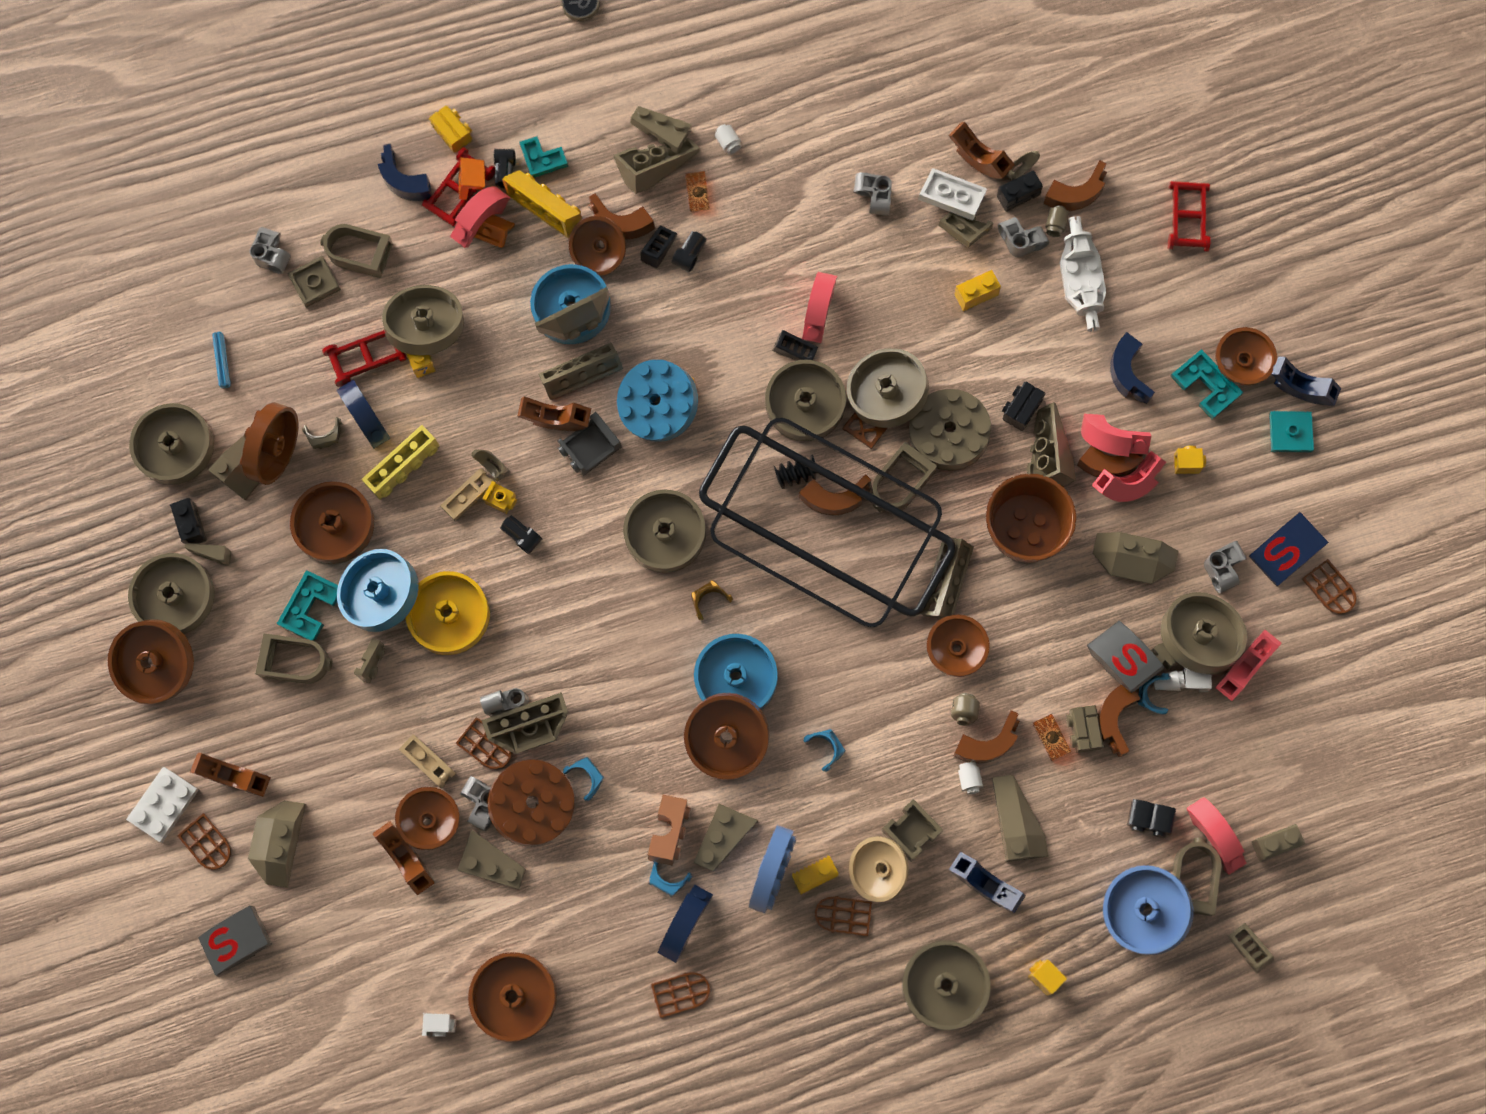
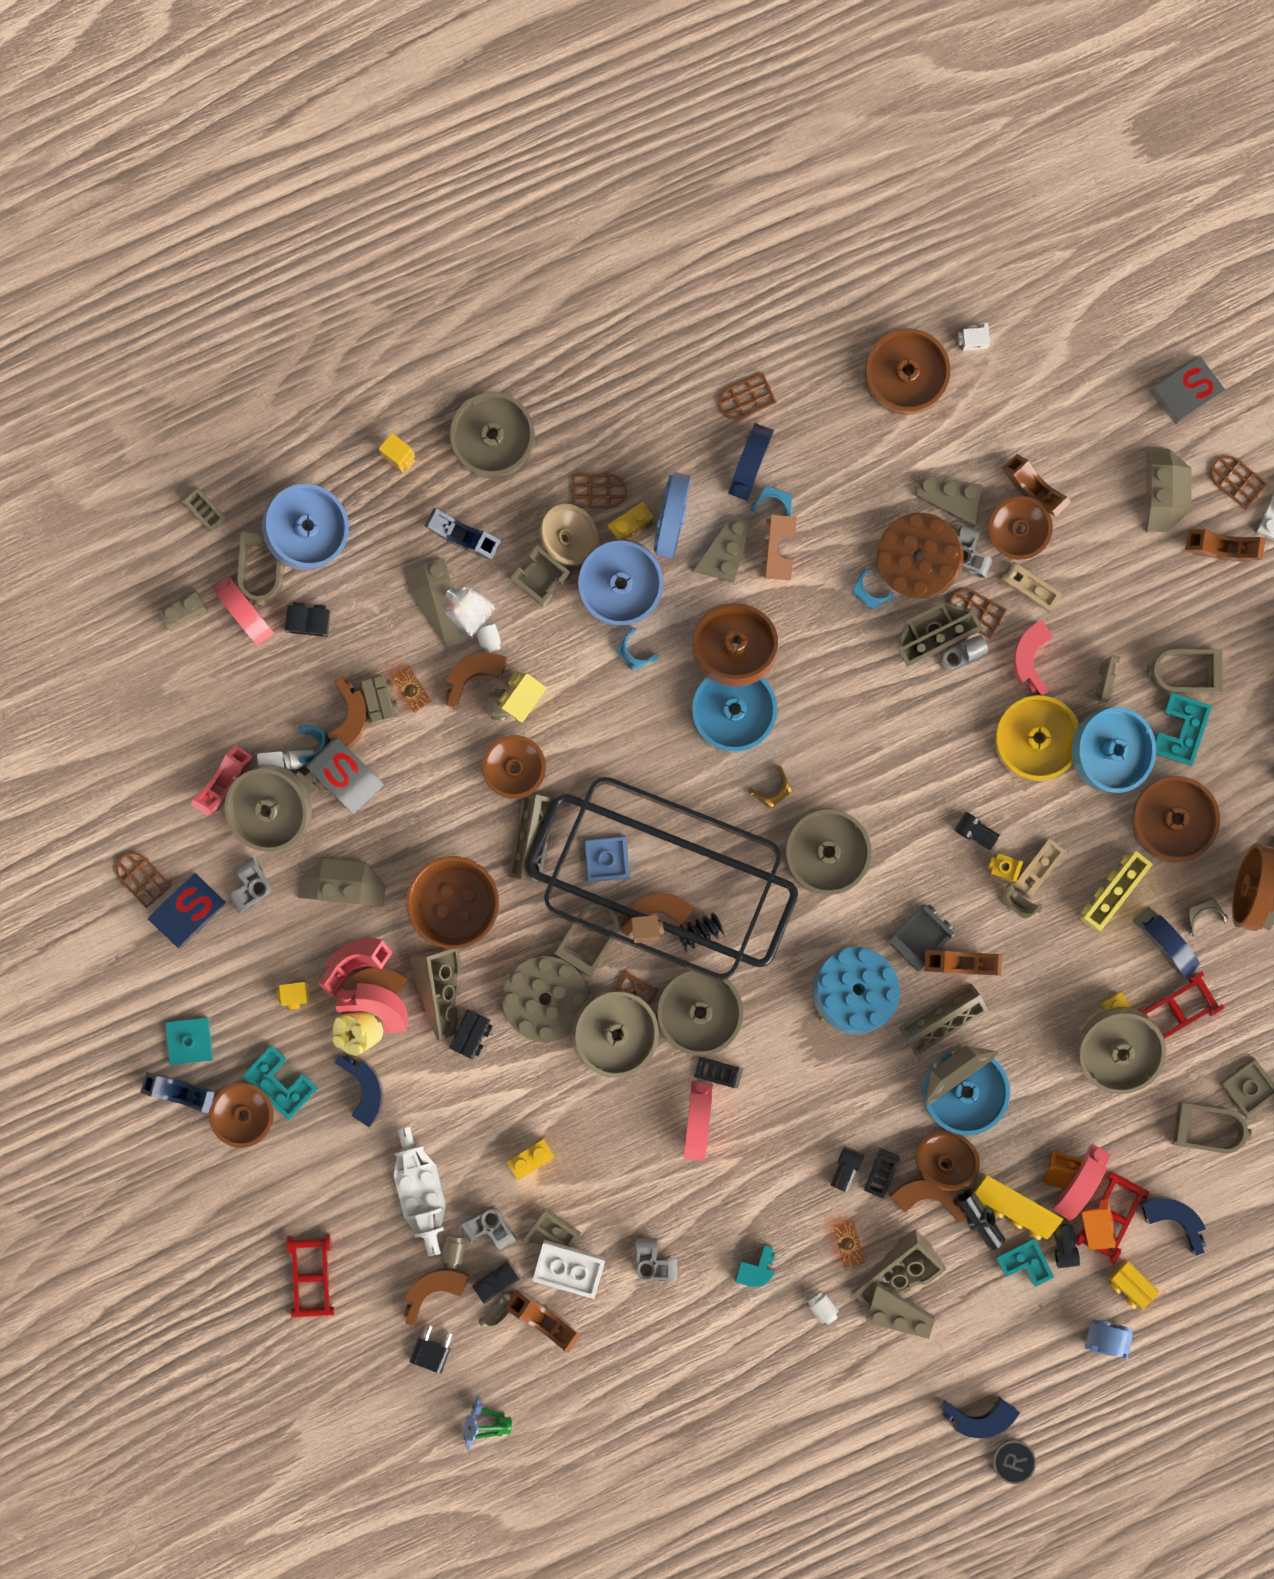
camera: 170 degrees right, 10 degrees up
(444, 699) = (1024, 657): none -> coral arch
(480, 85) = (1109, 1340): none -> medium blue brick
(575, 193) = (981, 1219): none -> black piece
(602, 31) = (984, 1426): none -> dark blue arch
(783, 173) = (756, 1274): none -> teal brick
(822, 831) = (626, 603): none -> medium blue piece
(847, 469) = (647, 929): none -> medium nougat brick
(876, 552) = (606, 859): none -> medium blue tile
(942, 709) = (522, 697): none -> light yellow brick
(989, 804) = (467, 610): none -> clear torso
(1028, 74) = (499, 1426): none -> plant
(1085, 140) = (429, 1353): none -> black piece
(1132, 414) = (356, 1032): none -> light yellow brick

